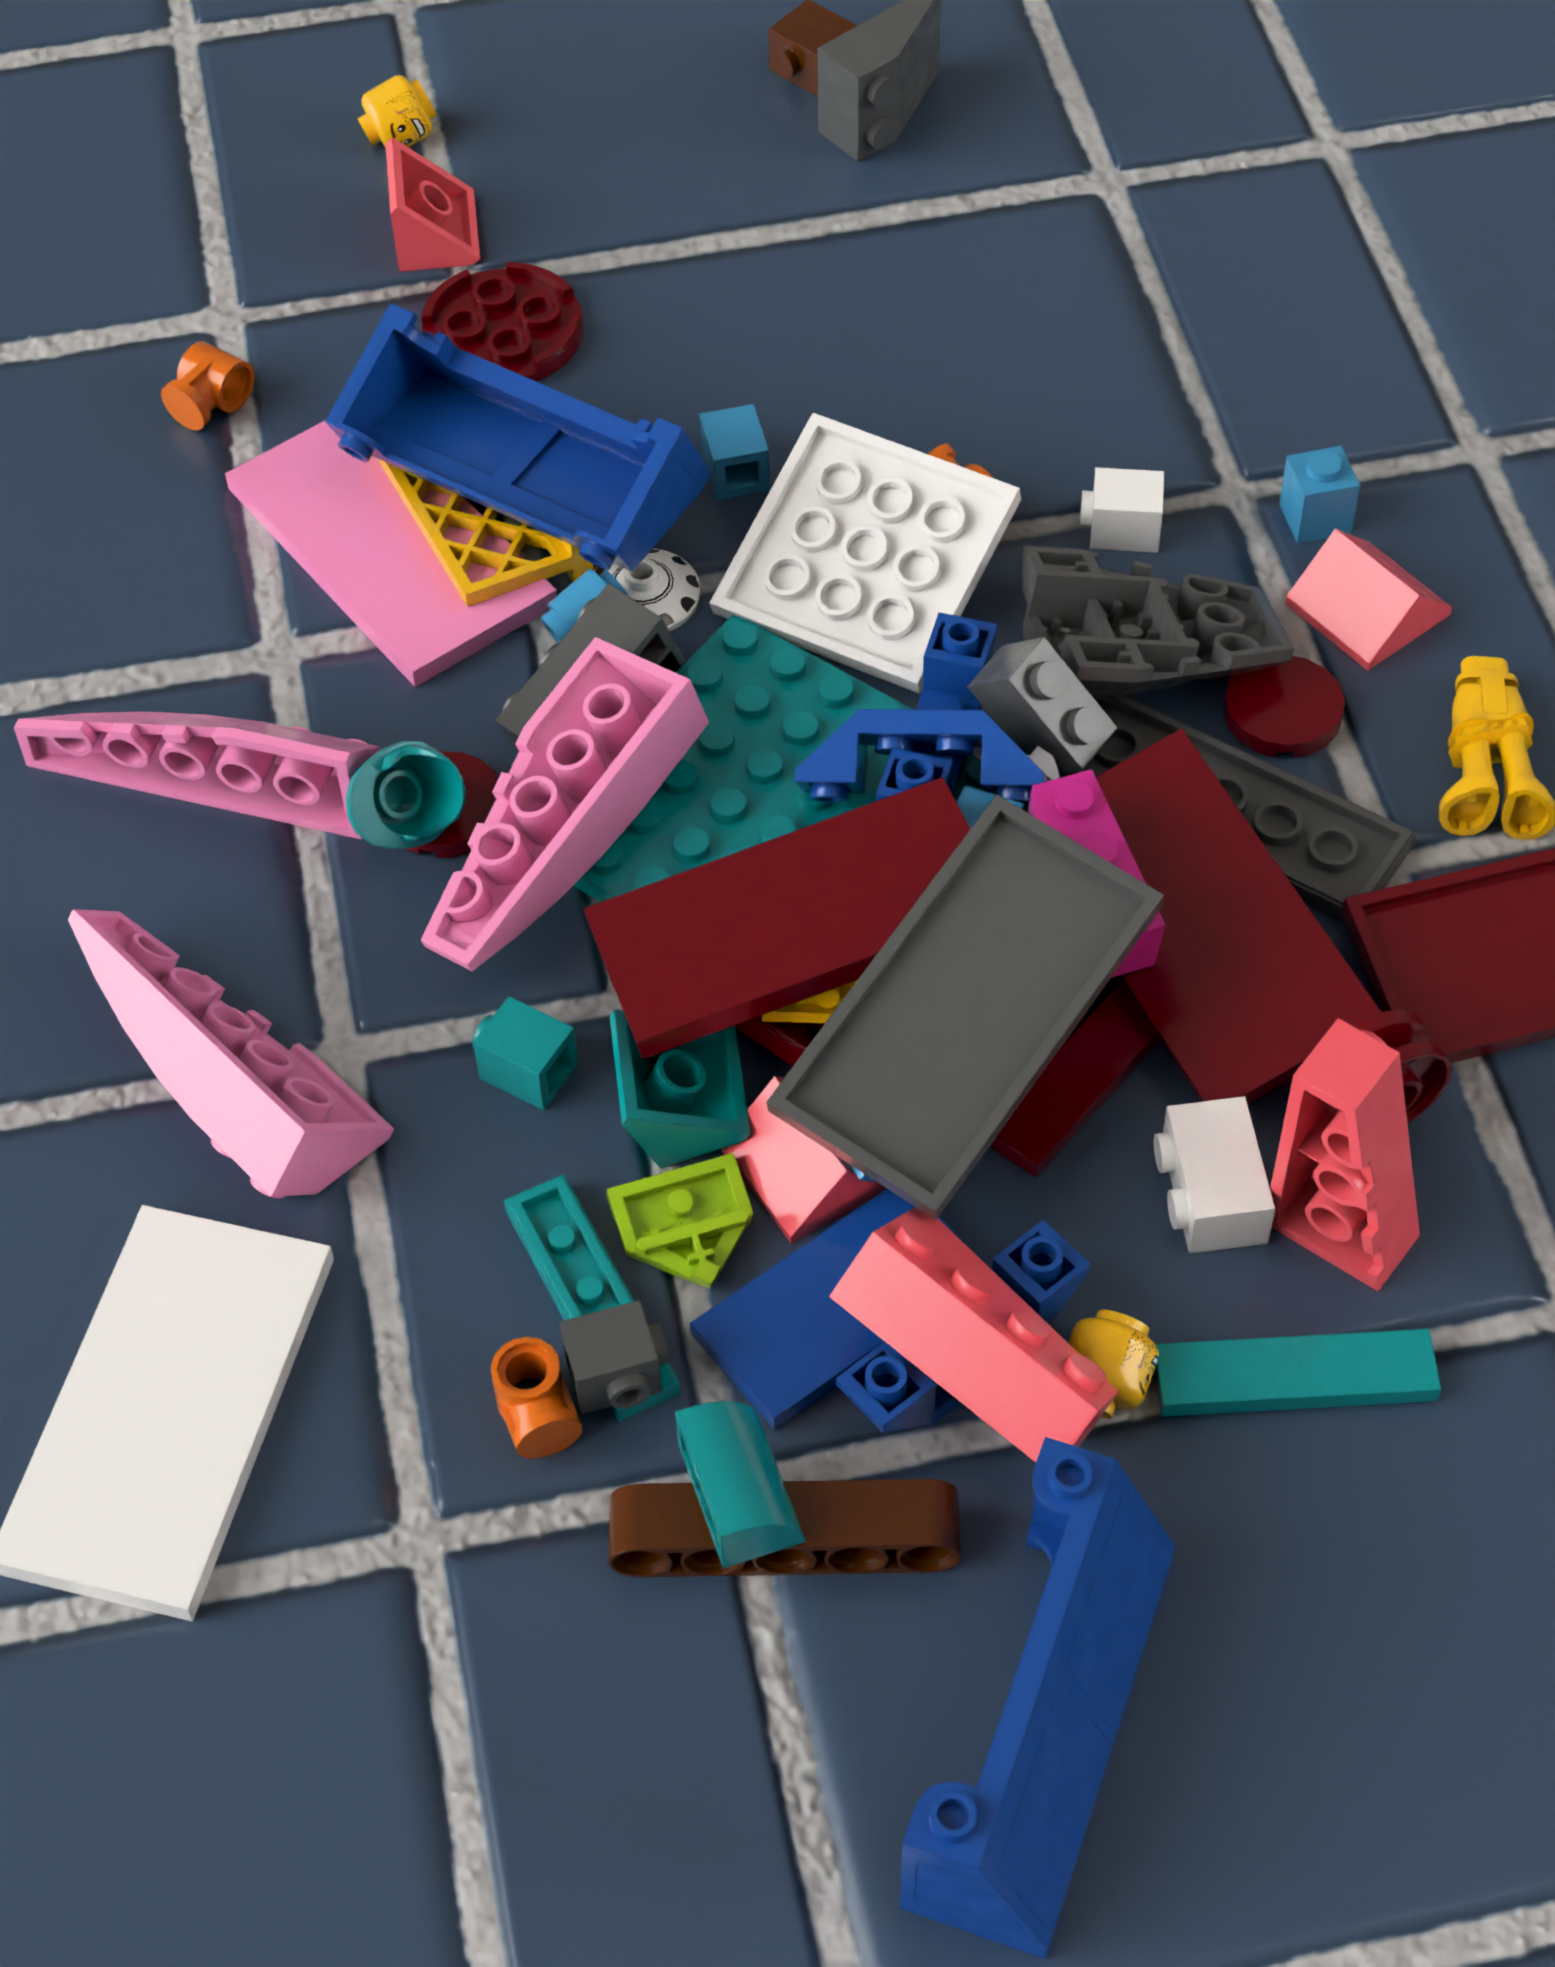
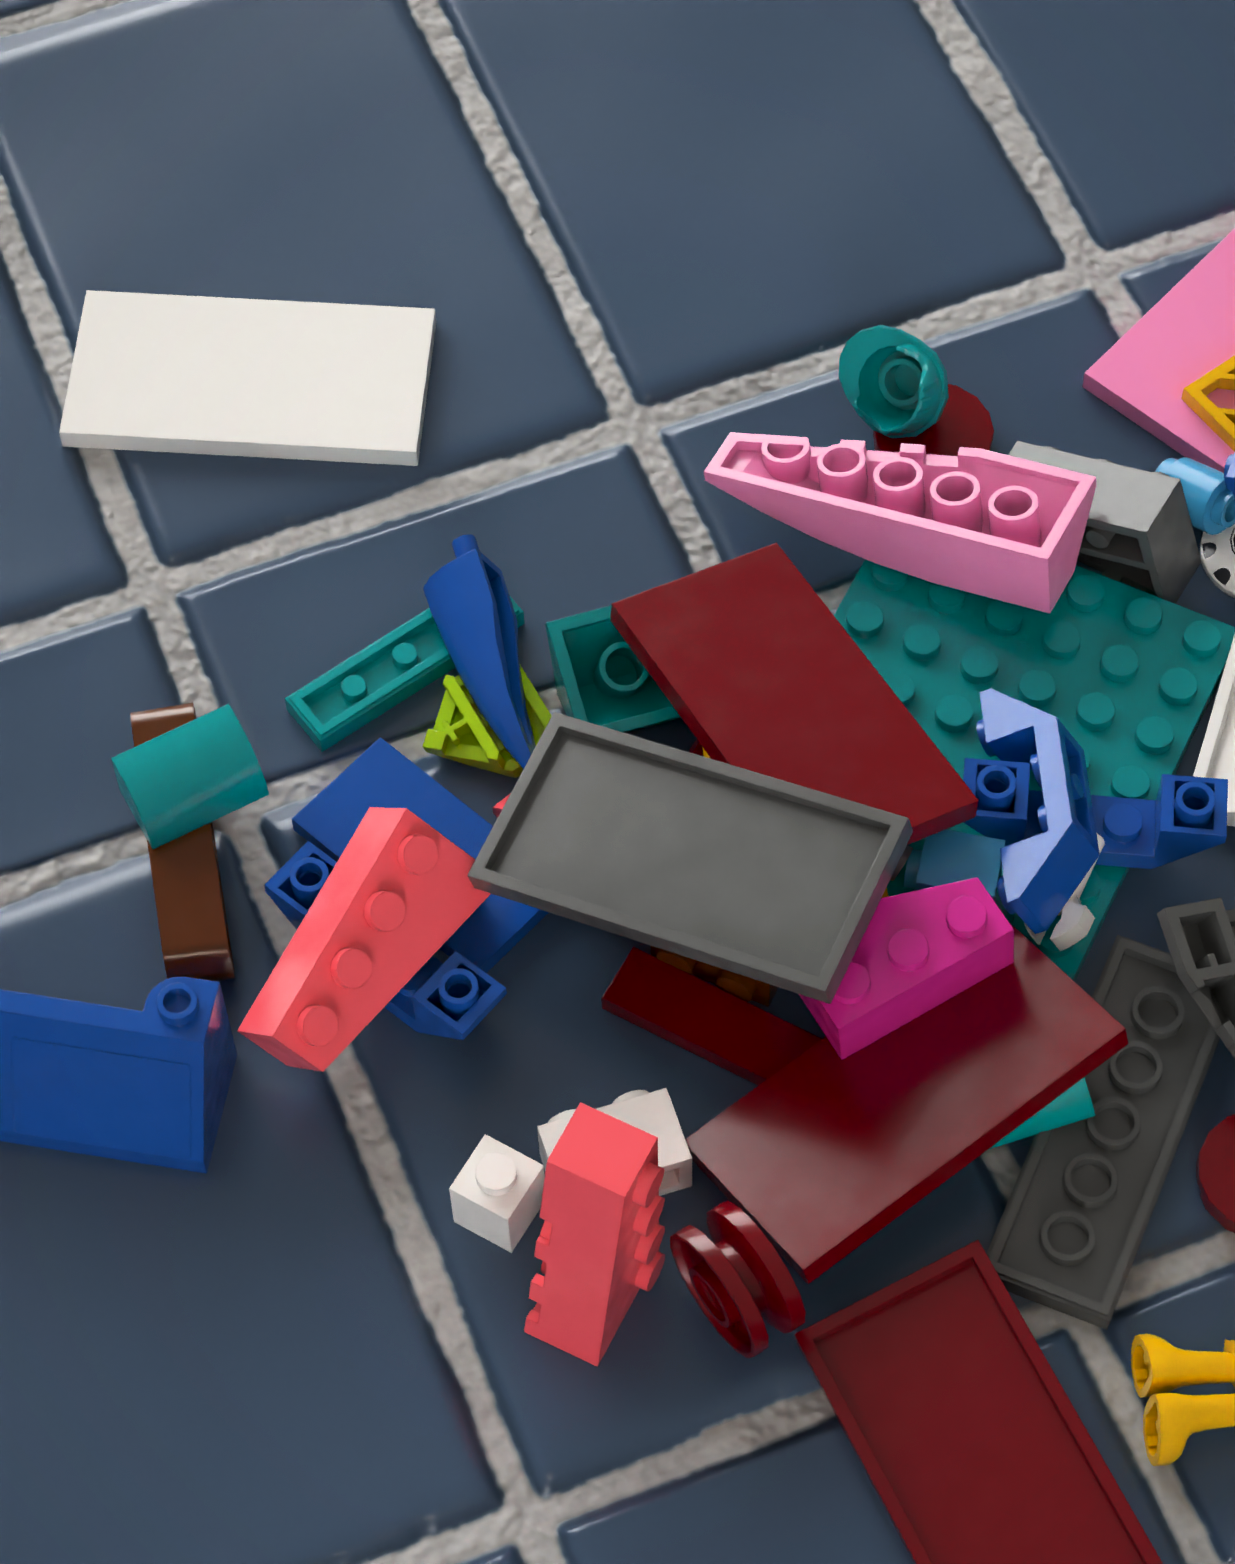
camera: 80 degrees right, 5 degrees up
(205, 761) = (929, 240): bright pink wedge -> none
(258, 1102) = (580, 343): bright pink wedge -> none
(525, 1052) = (643, 549): teal brick -> none
(540, 1417) = (269, 640): orange piece -> none
(601, 1205) = (482, 640): none -> blue piece
(614, 1357) = (314, 671): dark grey brick -> none
(1042, 703) = (1133, 884): dark grey brick -> none
(1123, 1353) = (383, 1081): yellow head -> none
(1249, 1274) = (497, 1193): none -> white brick
(1296, 1372) = (411, 1258): teal tile -> none

